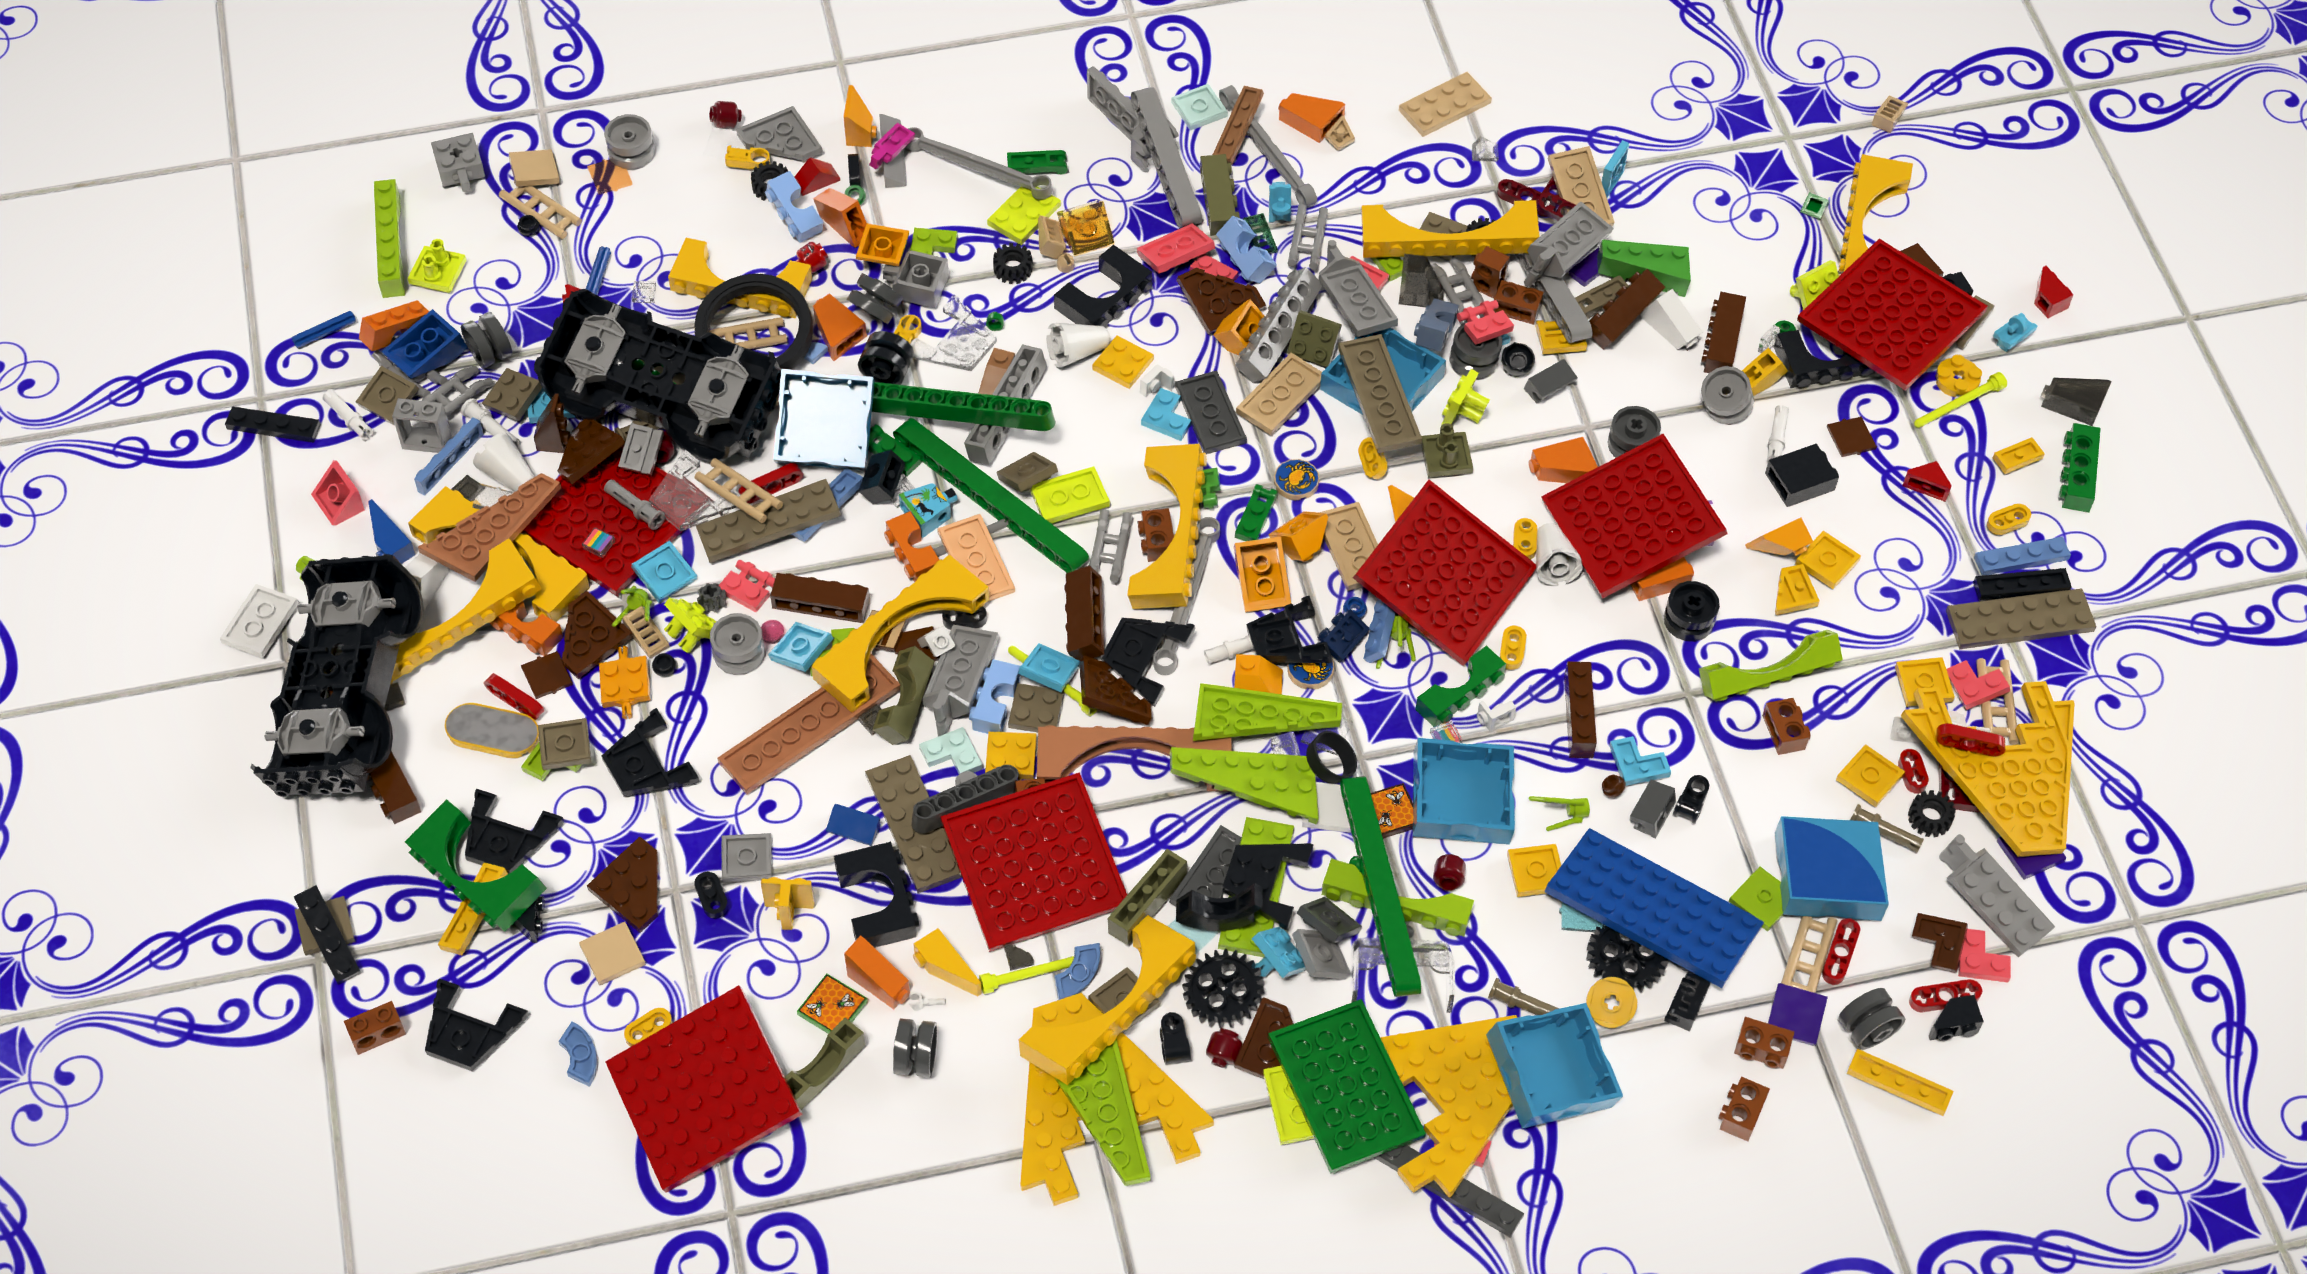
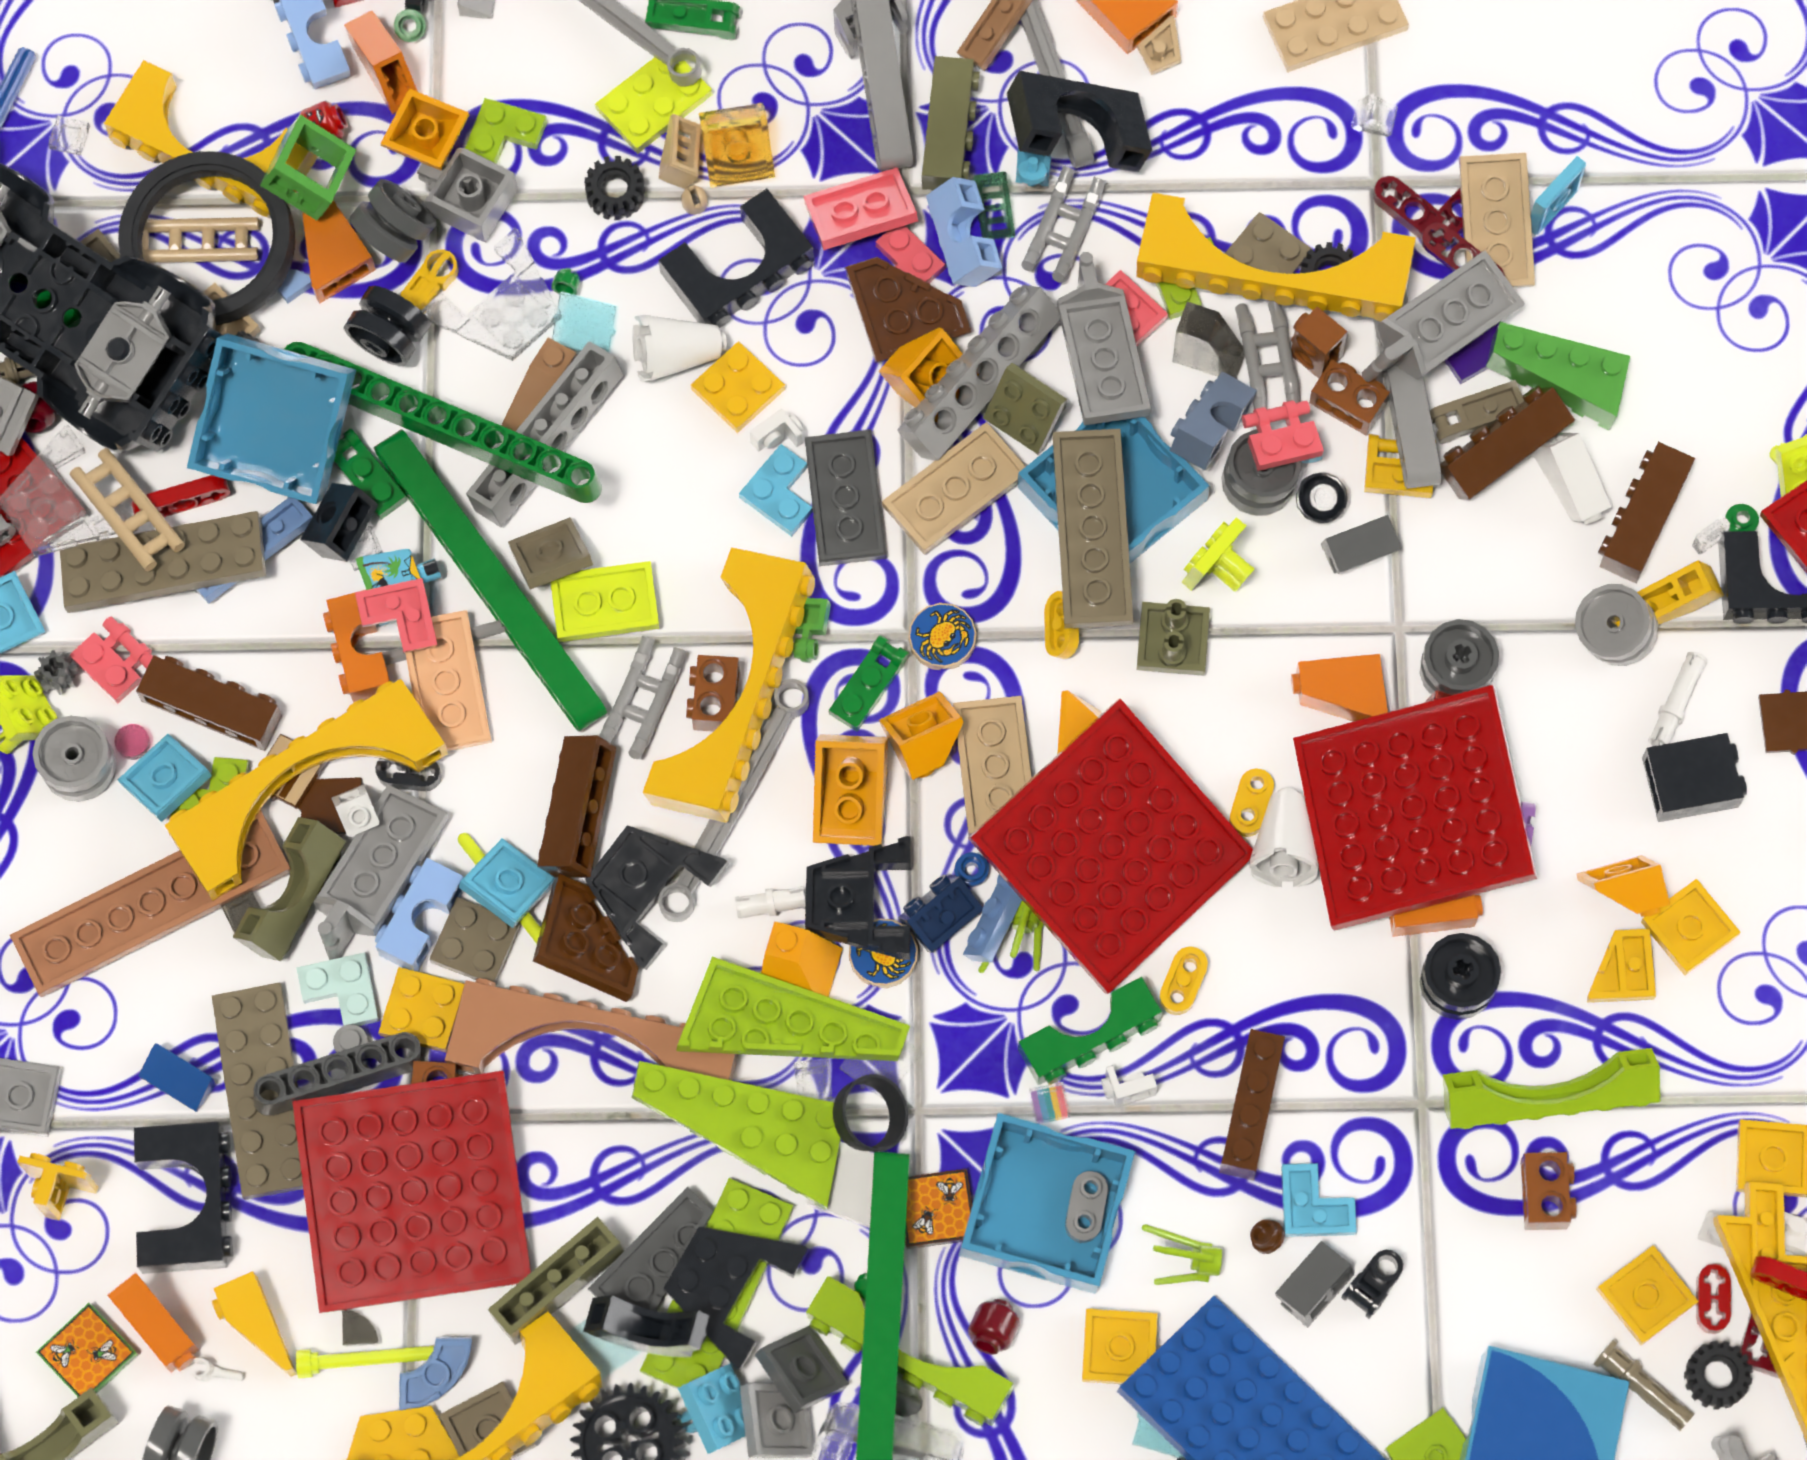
camera: 15 degrees right, 15 degrees up
(800, 278) = (283, 179): none -> bright green window
(938, 512) = (404, 603): none -> coral plate
(1011, 337) = (583, 321): none -> clear light blue piece
(1284, 166) = (1112, 111): none -> black arch
(1489, 788) = (1086, 1205): none -> light grey plate

